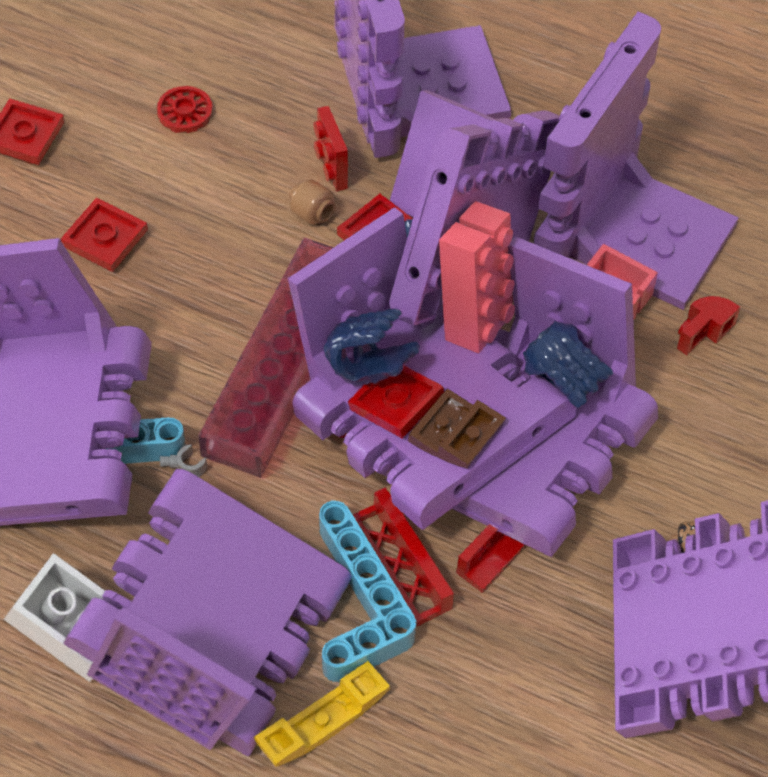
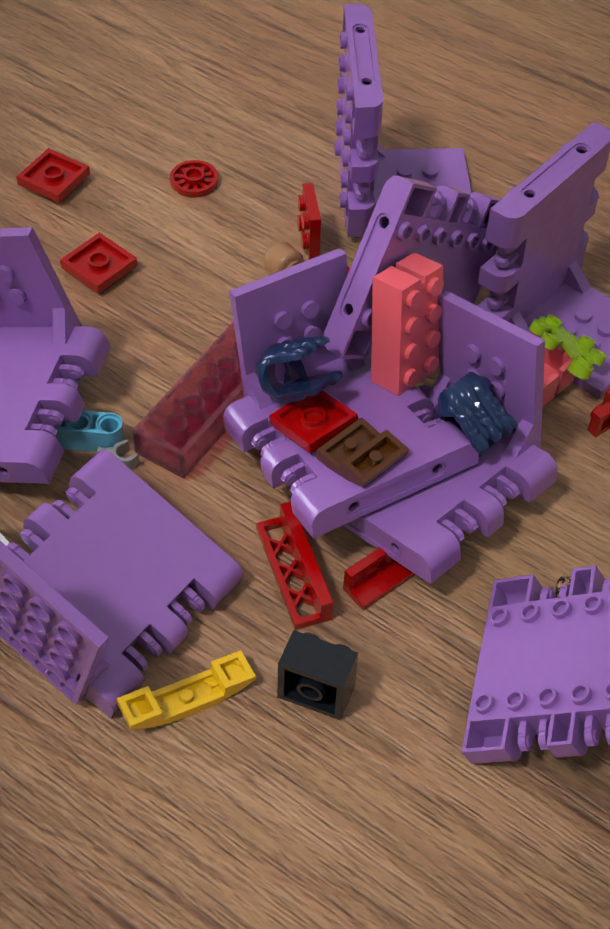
camera: 10 degrees right, 5 degrees down
(368, 592) = (258, 589): medium azure beam -> none
(454, 674) = (317, 674): none -> black brick
(646, 255) = (580, 349): none -> lime plant

